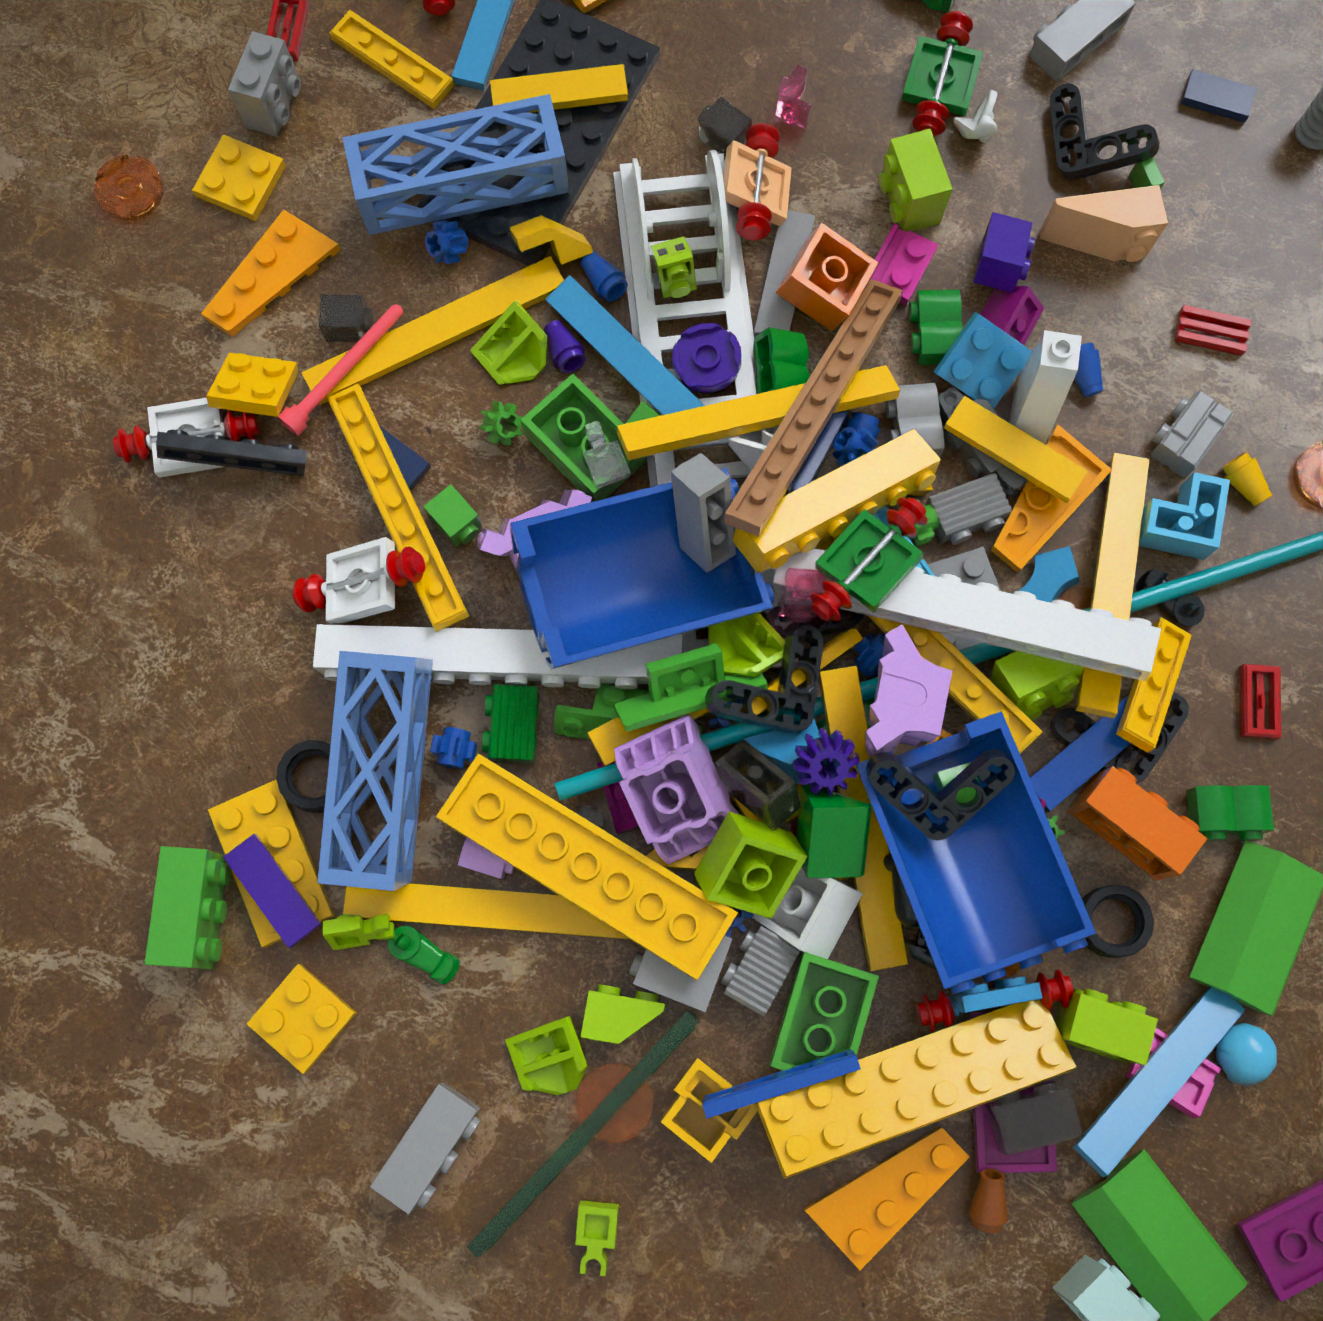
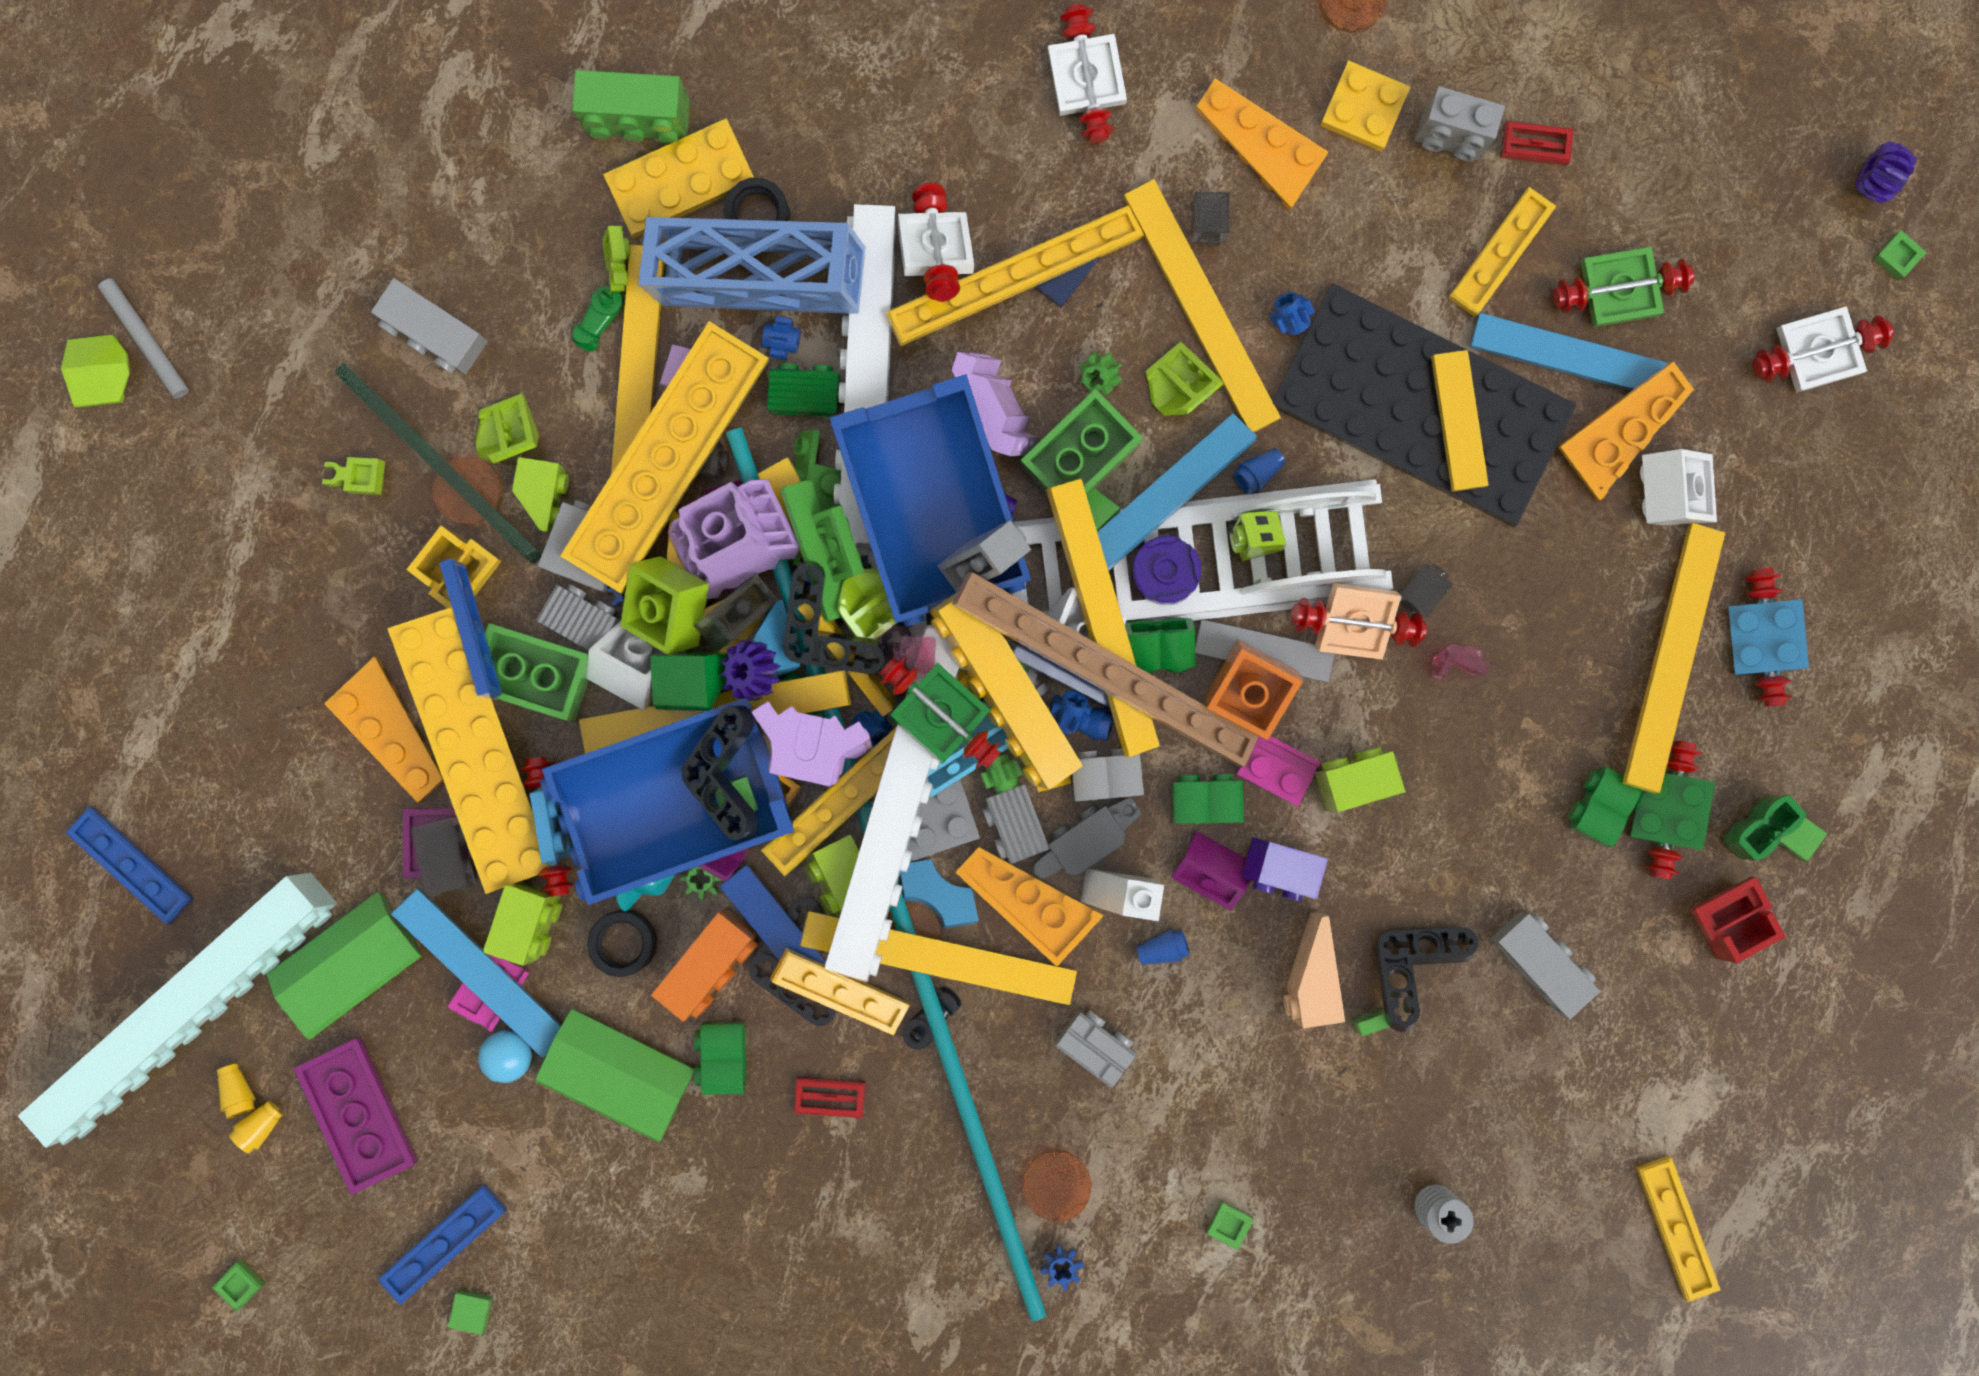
camera: 90 degrees right, 10 degrees up
(220, 452) = (1064, 102): black plate -> none
(252, 384) = (1138, 132): yellow plate -> none
(272, 890) = (649, 180): dark purple tile -> none
(297, 415) = (1106, 177): coral piece -> none
(301, 1018) = (542, 213): yellow plate -> none
(452, 147) = (1404, 371): medium blue piece -> none
(453, 516) = (1006, 330): bright green brick -> none
(564, 348) = (1182, 432): dark purple cone -> none
(565, 242) = (1294, 432): yellow slope -> none
(605, 459) = (1048, 468): clear plate -> none
(942, 73) = (1490, 817): green plate -> none
(982, 123) = (1430, 849): white piece -> none
(983, 360) = (1165, 842): dark azure plate -> none
(989, 1204) = (376, 817): dark orange cone -> none
(1015, 449) = (1070, 868): yellow tile -> none
(1190, 525) = (998, 1042): medium azure brick -> none
(1212, 324) = (1203, 1108): red tile -> none
(1218, 95) = (1473, 1106): tile -> none
(1247, 478) = (1051, 1100): yellow cone -> none

